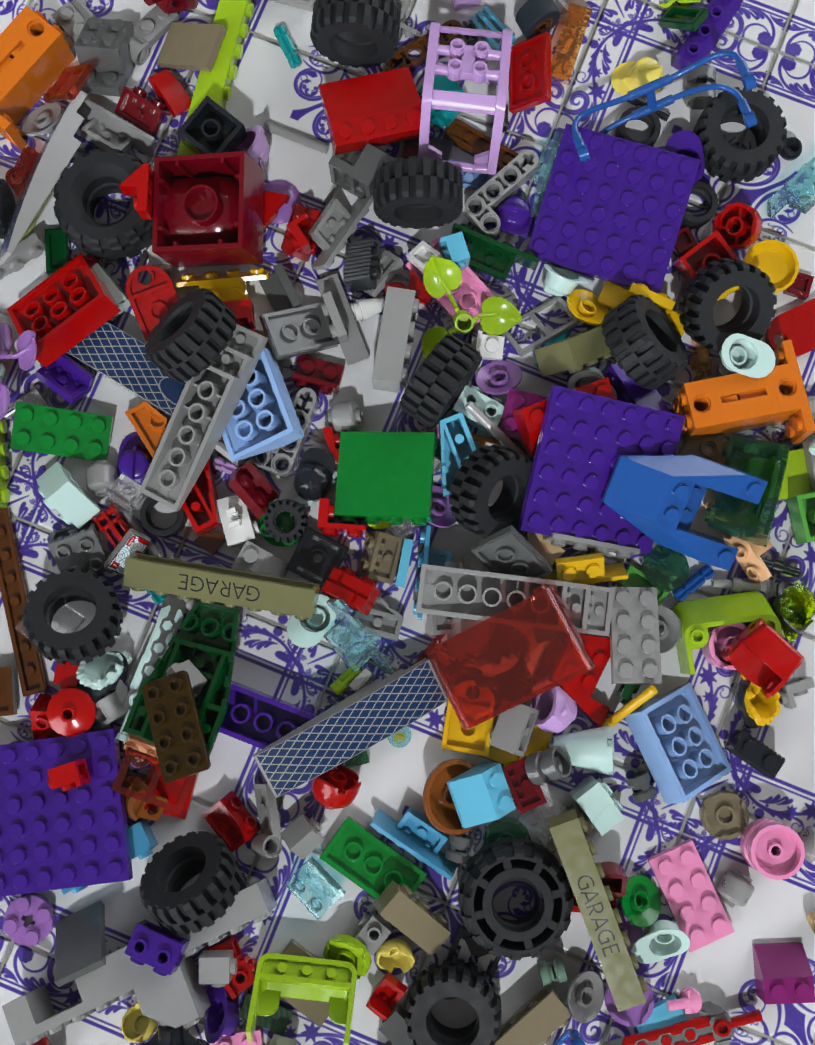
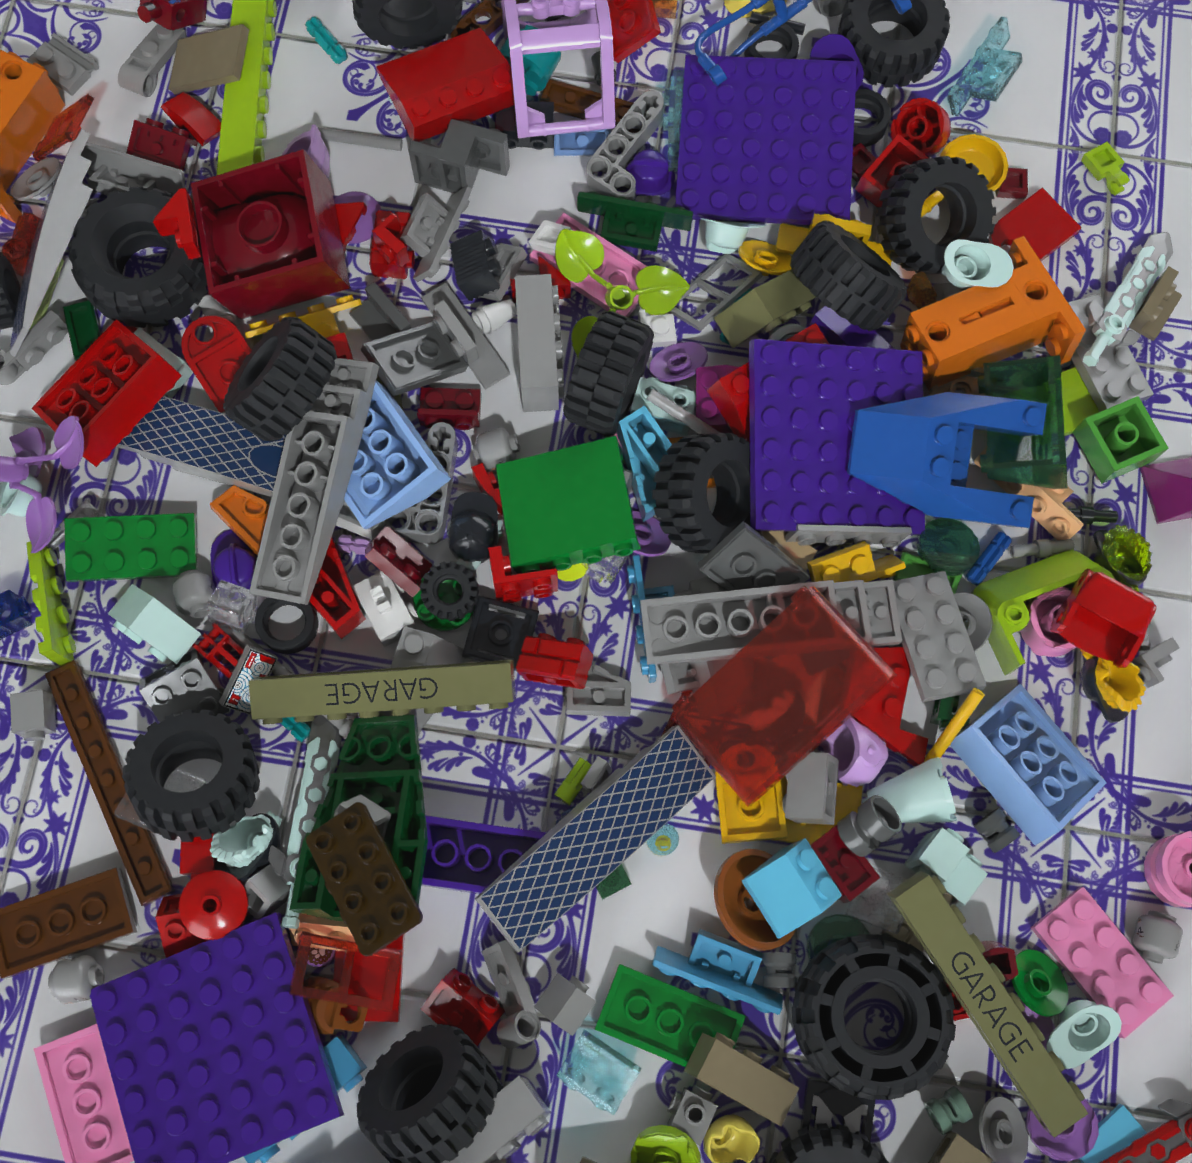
camera: 15 degrees left, 10 degrees down
(66, 378) = (125, 478): dark purple bracket -> none
(69, 775) = (227, 987): red brick -> none
(106, 48) = (107, 79): dark grey bracket -> none
(211, 541) = (356, 644): reddish brown tile -> none
(212, 129) = (254, 138): black brick -> none
(311, 631) = (514, 724): light aqua piece -> none
(336, 787) = (594, 927): red cylinder -> none
(351, 641) = (573, 725): clear light blue bracket -> none
(380, 556) = (583, 612): dark tan bracket -> none
(404, 563) = (615, 613): medium azure tile -> none
(418, 192) = (526, 162): black tyre -> none
(455, 249) = (587, 218): medium azure brick -> none
(689, 1001) = (1142, 1105): bright pink plate -> none
(724, 814) = (1113, 844): dark tan tile -> none
(755, 753) = (1129, 752): black brick -> none
(796, 146) = (963, 34): black plate -> none

